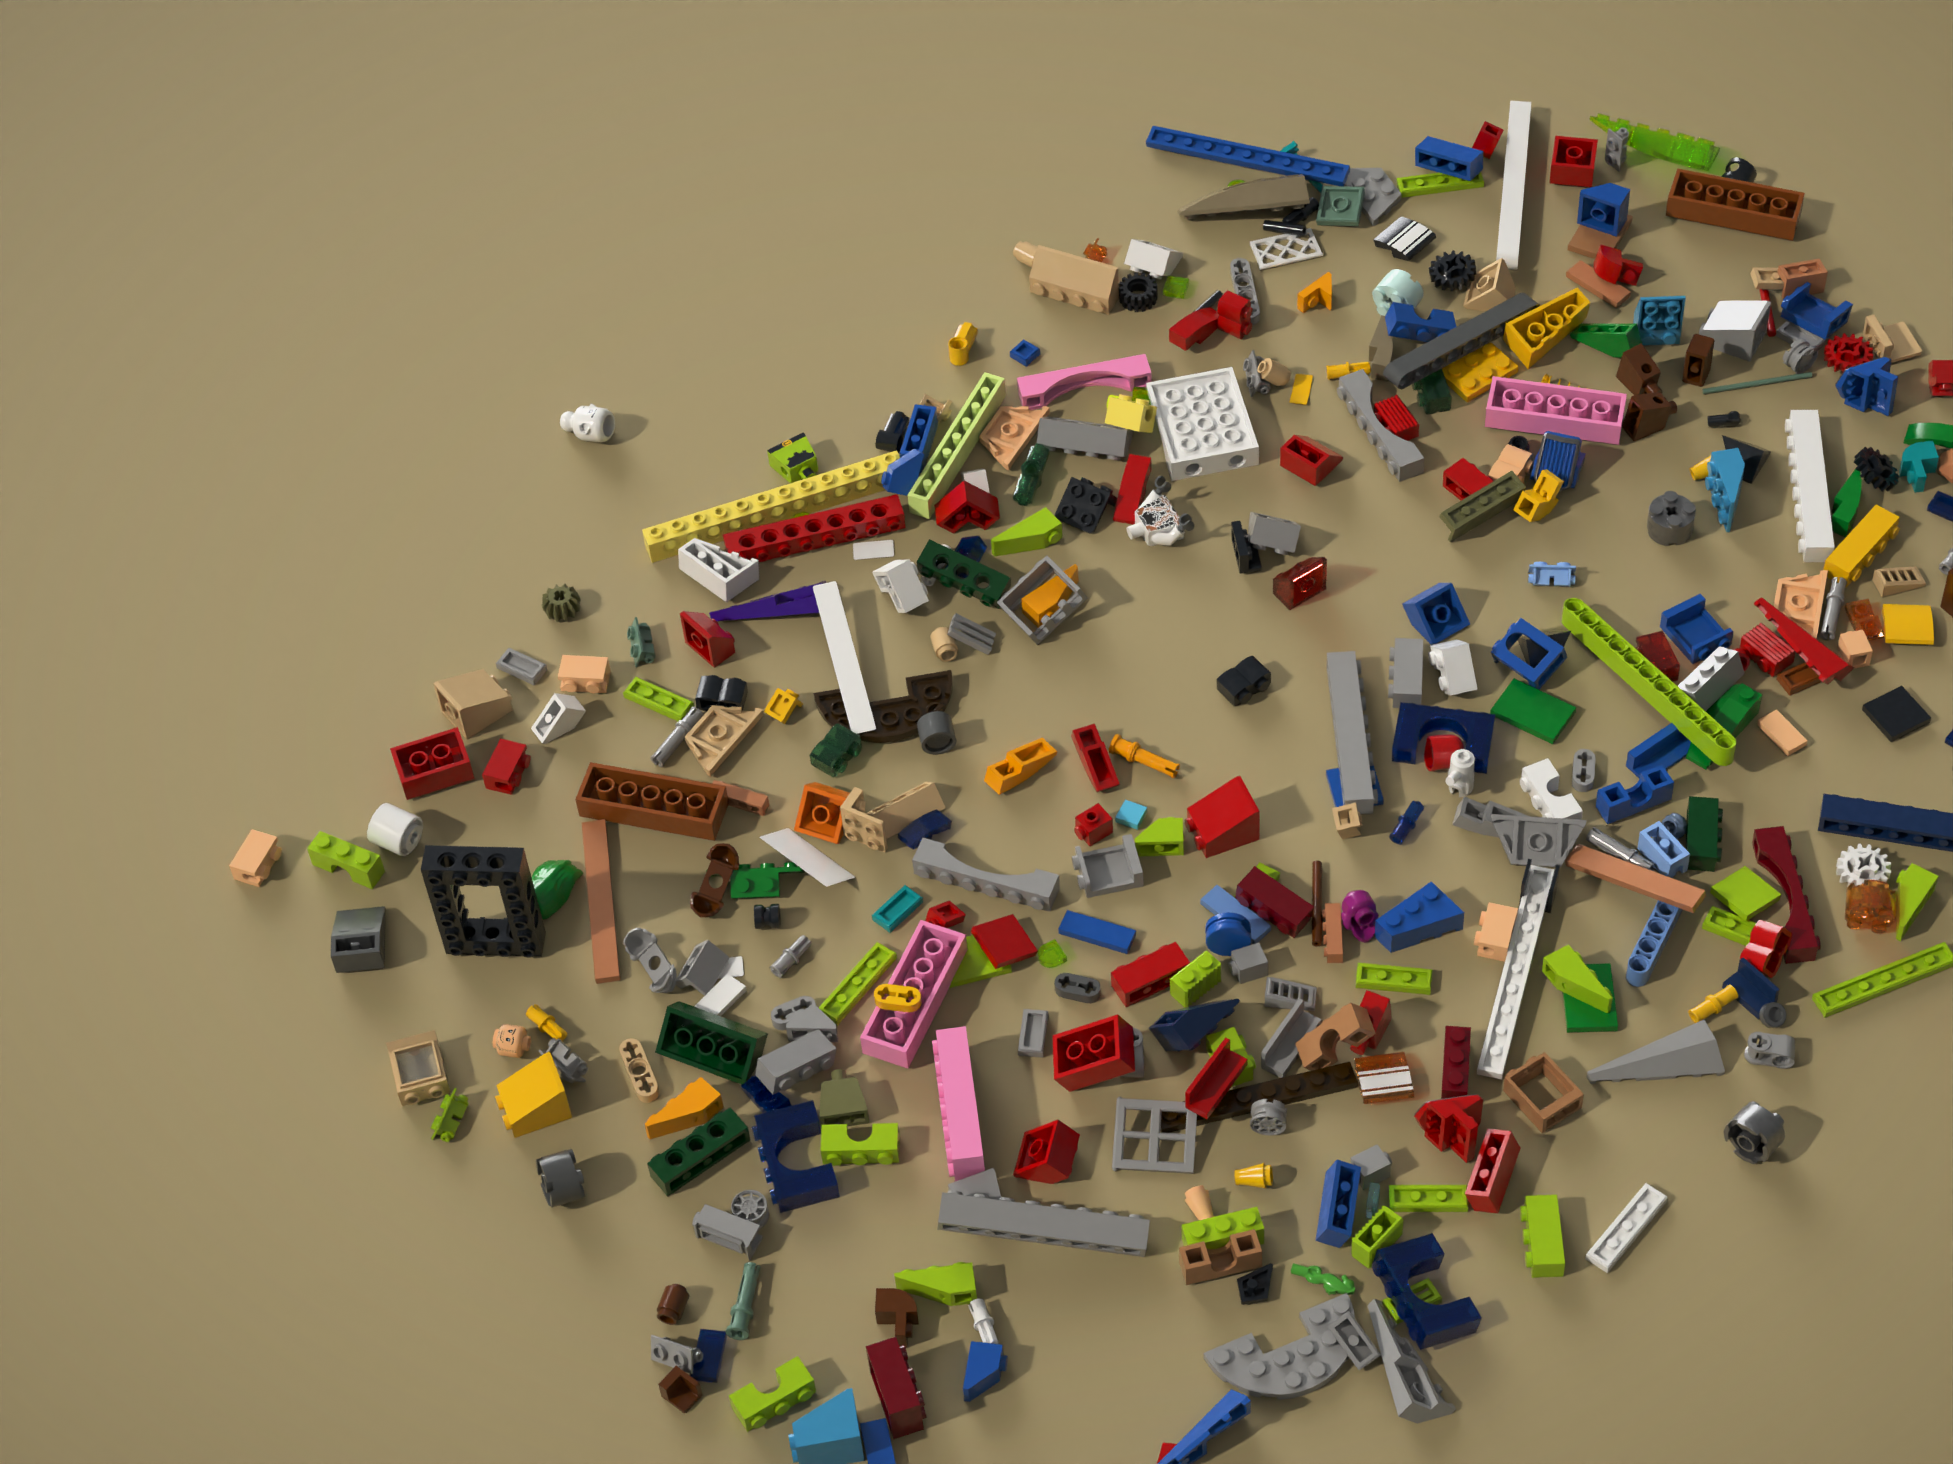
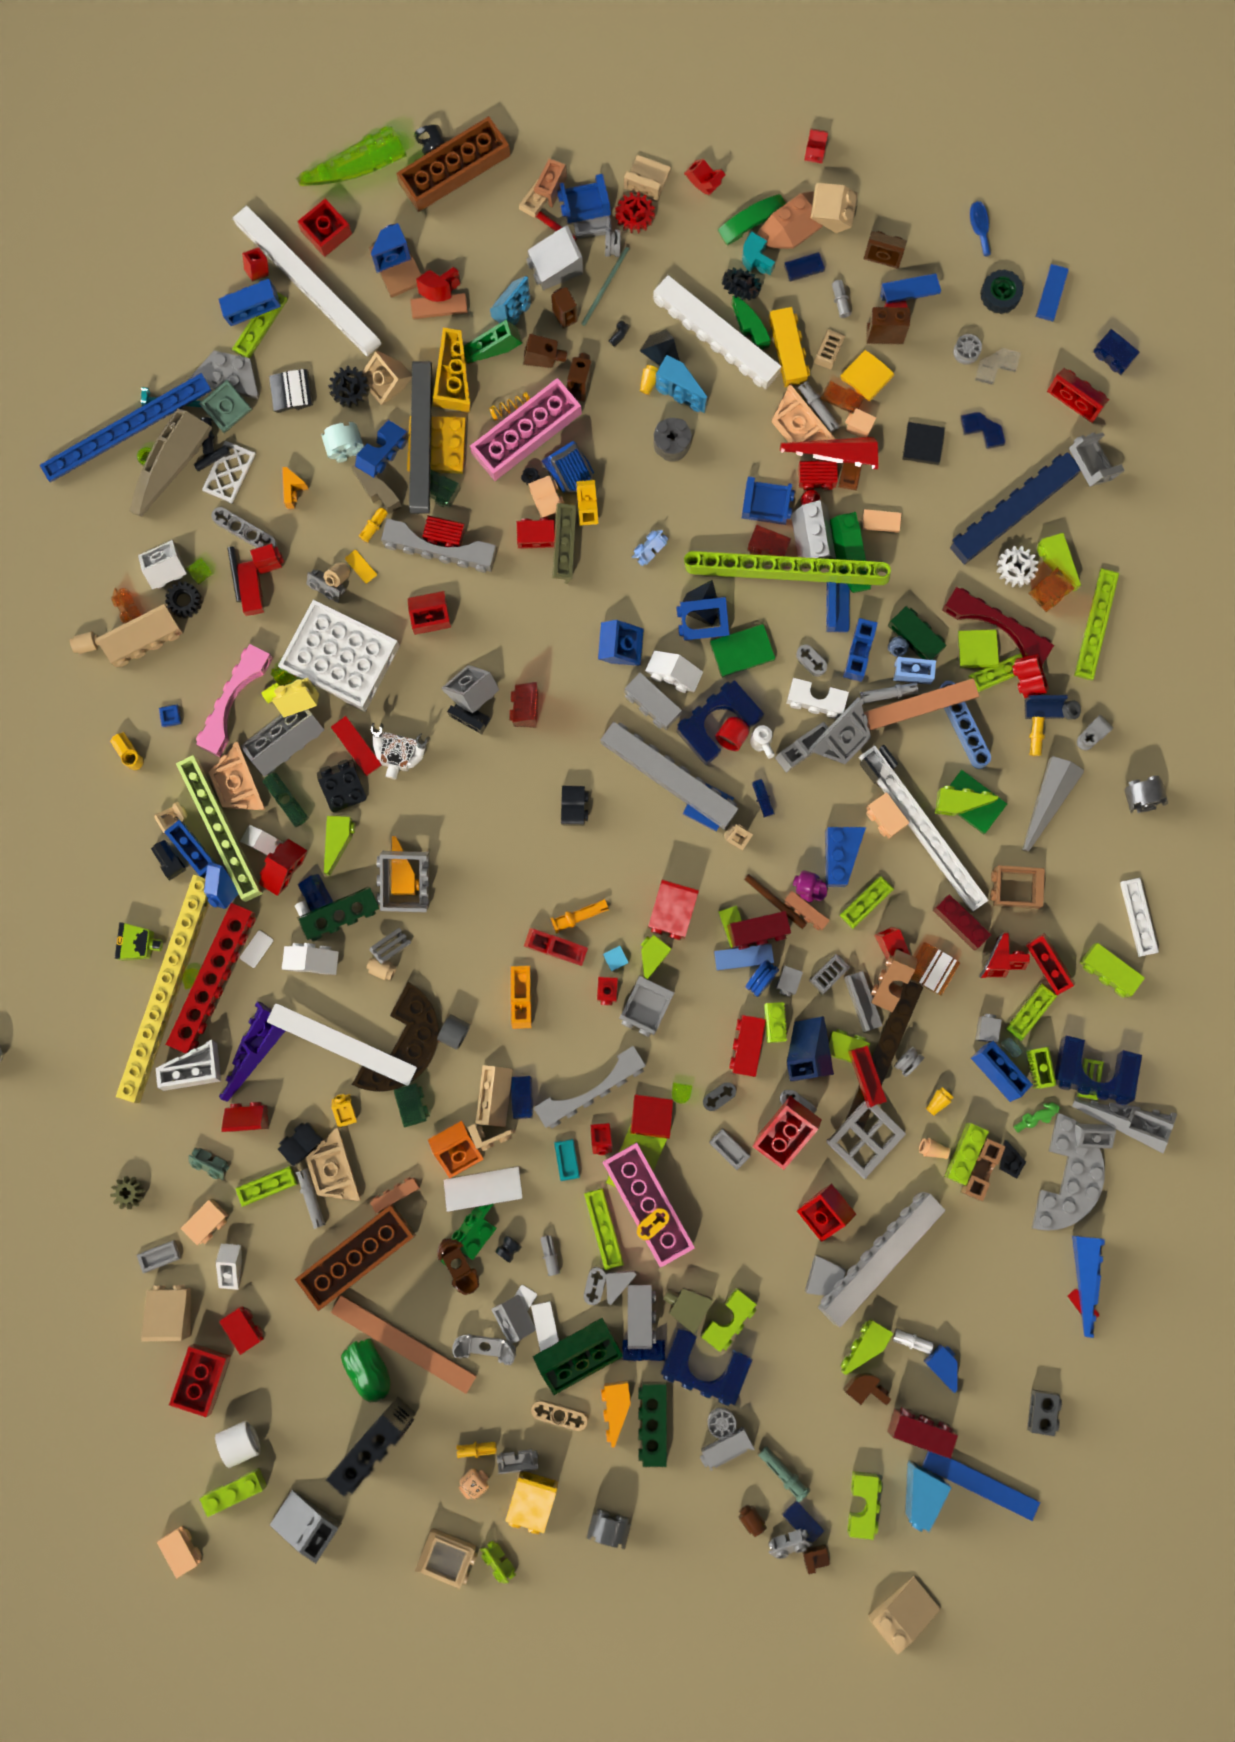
camera: 55 degrees left, 30 degrees up
(958, 1103) = (760, 1244): bright pink brick -> none
(1097, 932) = (687, 1051): blue tile -> none
(1616, 147) = (339, 191): light grey hinge -> none
(1869, 386) = (676, 226): blue piece -> none

